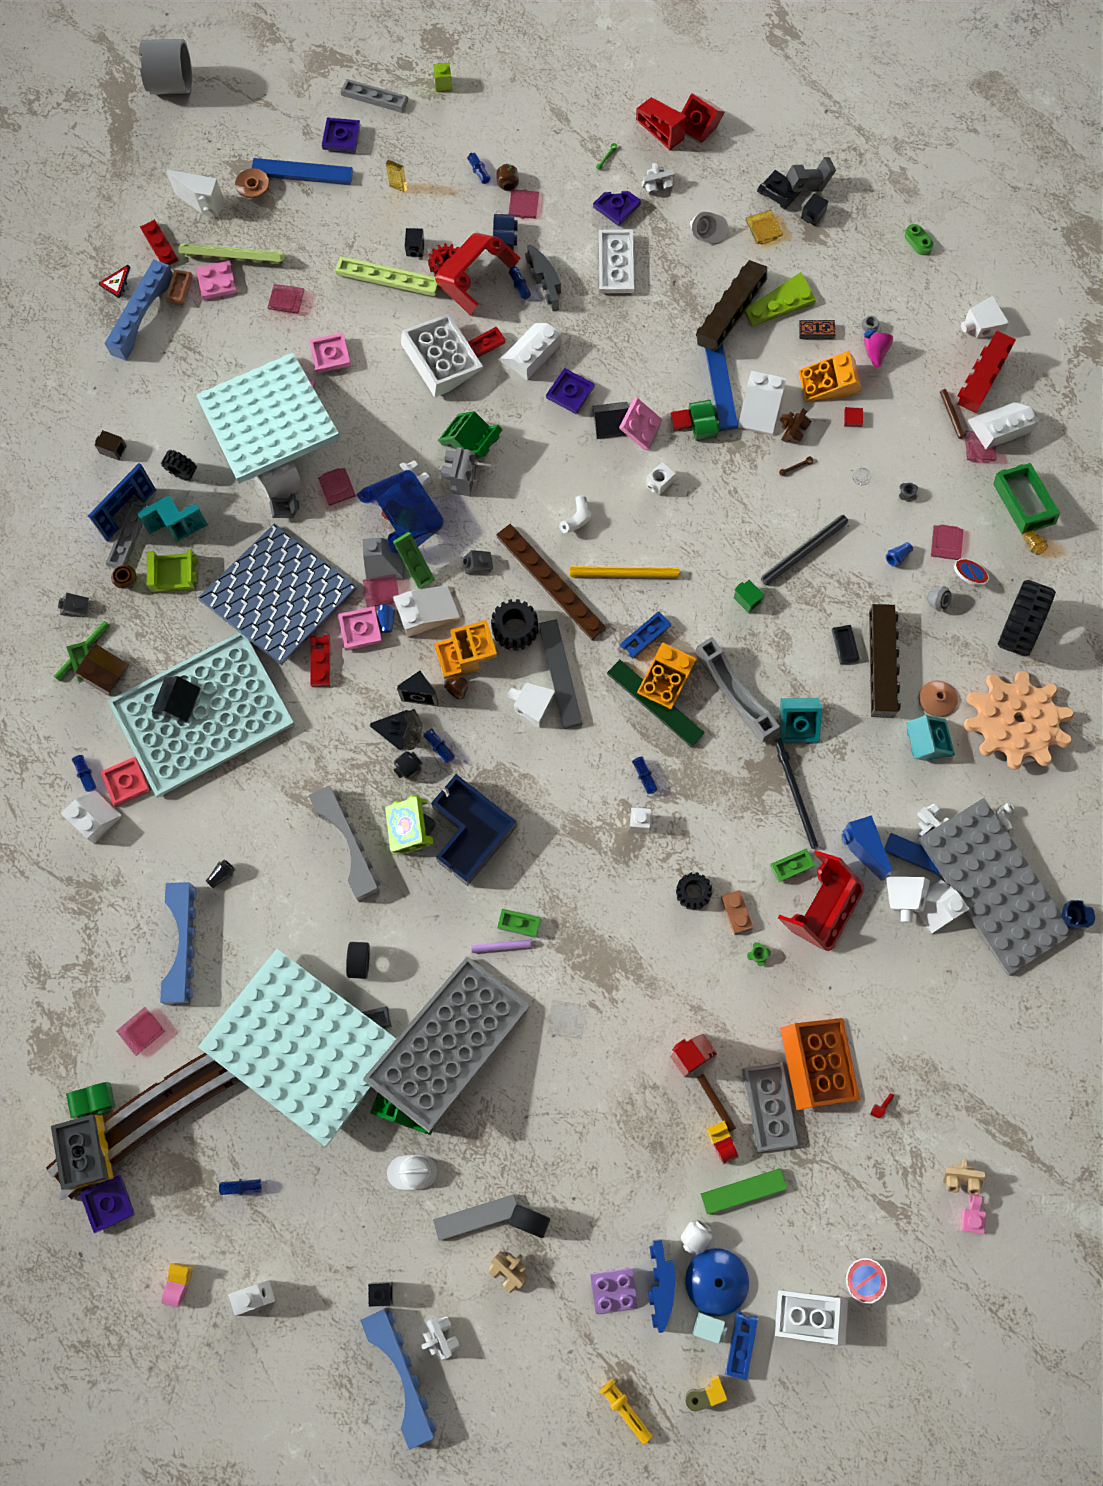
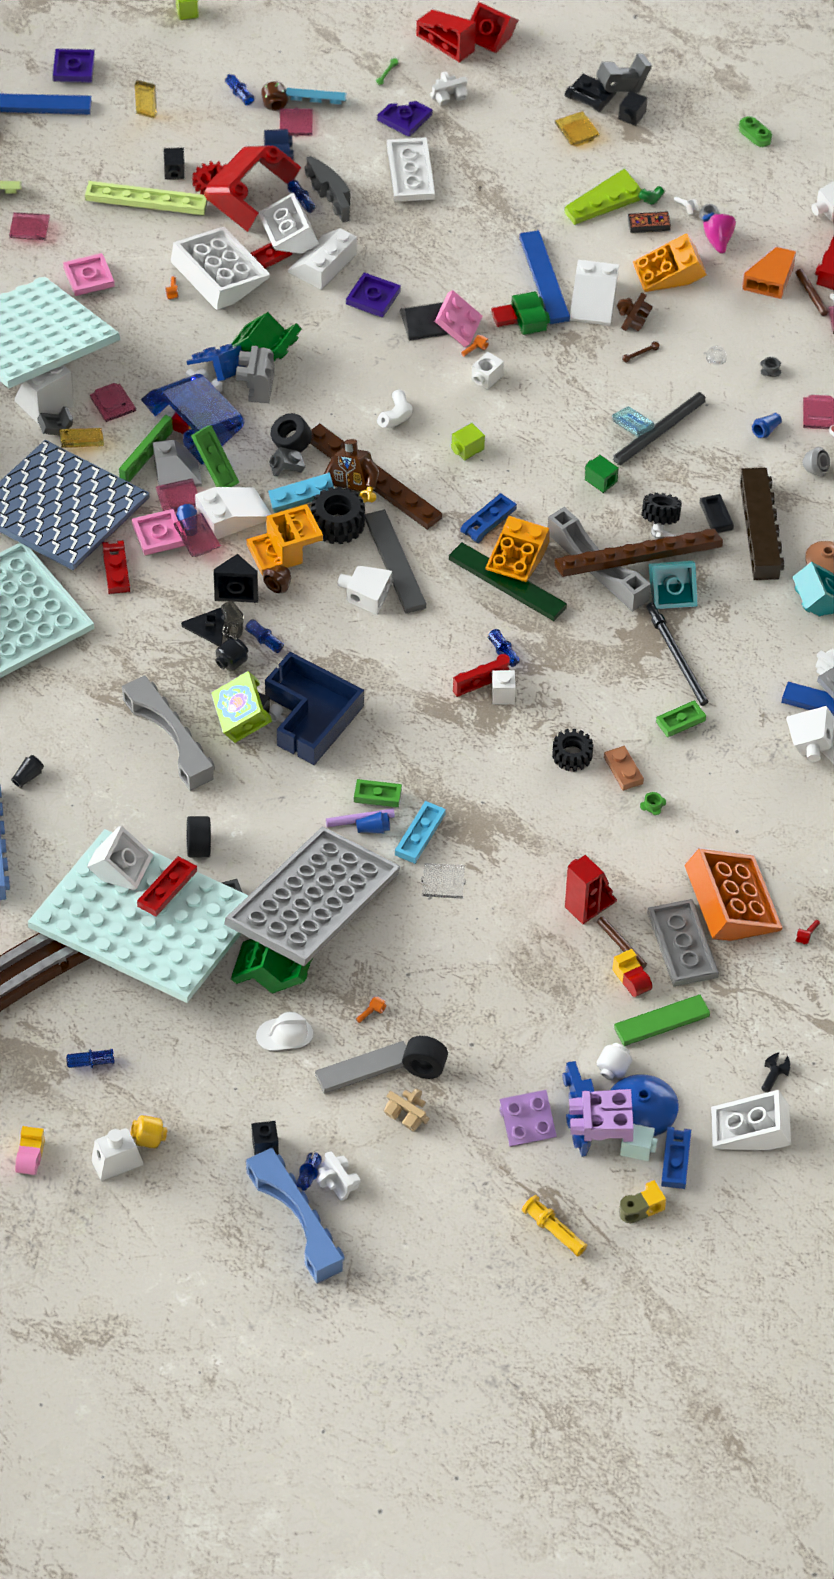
camera: 10 degrees left, 20 degrees down
(280, 1274) = (148, 1131): none -> yellow head
(283, 994) = (120, 860): none -> white slope
(305, 523) = (81, 437): none -> clear yellow tile
(319, 1026) = (167, 886): none -> red plate
(356, 542) = (145, 449): none -> bright green tile
(374, 95) = (107, 26): light grey tile -> none
(391, 636) = (197, 535): none -> clear pink piece
(399, 375) = (171, 292): none -> orange hand
(414, 1333) = (309, 1171): none -> clear blue axle
(431, 452) = (224, 360): none -> blue bracket
(439, 829) = (275, 713): none -> white hand
(474, 530) = (286, 424): none -> black tyre
(486, 597) = (299, 492): none -> medium azure plate
(494, 1151) = (376, 1004): none -> orange hand
(504, 316) = (288, 226): none -> white slope
(512, 955) = (374, 823): none -> blue cone
(531, 581) = (354, 470): none -> reddish brown torso
(543, 179) = (316, 95): none -> medium azure plate
(551, 968) = (420, 832): none -> medium azure plate
(623, 804) = (480, 676): none -> red plate
(624, 572) = (456, 461): yellow axle -> none
(635, 553) = (468, 441): none -> lime brick
(657, 446) = (479, 341): none -> orange hand
(673, 1316) = (604, 1115): none -> lavender hips
(709, 227) = (514, 130): white piece -> none
(731, 306) = (549, 202): dark brown brick -> none
(772, 686) = (638, 552): none -> reddish brown plate
(782, 542) = (633, 421): none -> clear light blue tile
(792, 660) = (657, 531): none -> white hand
(800, 632) = (661, 508): none -> black tyre
(821, 304) = (651, 197): none -> green arm
(831, 905) = (732, 750): red windscreen -> none
(838, 1257) = (775, 1070): none -> black bar
(853, 417) = (700, 301): red tile -> none
(855, 314) = (690, 204): none -> white hand
(865, 843) = (761, 689): blue slope -> none
(866, 1280) = (807, 1084): piece -> none
(918, 393) = (770, 273): none -> orange slope

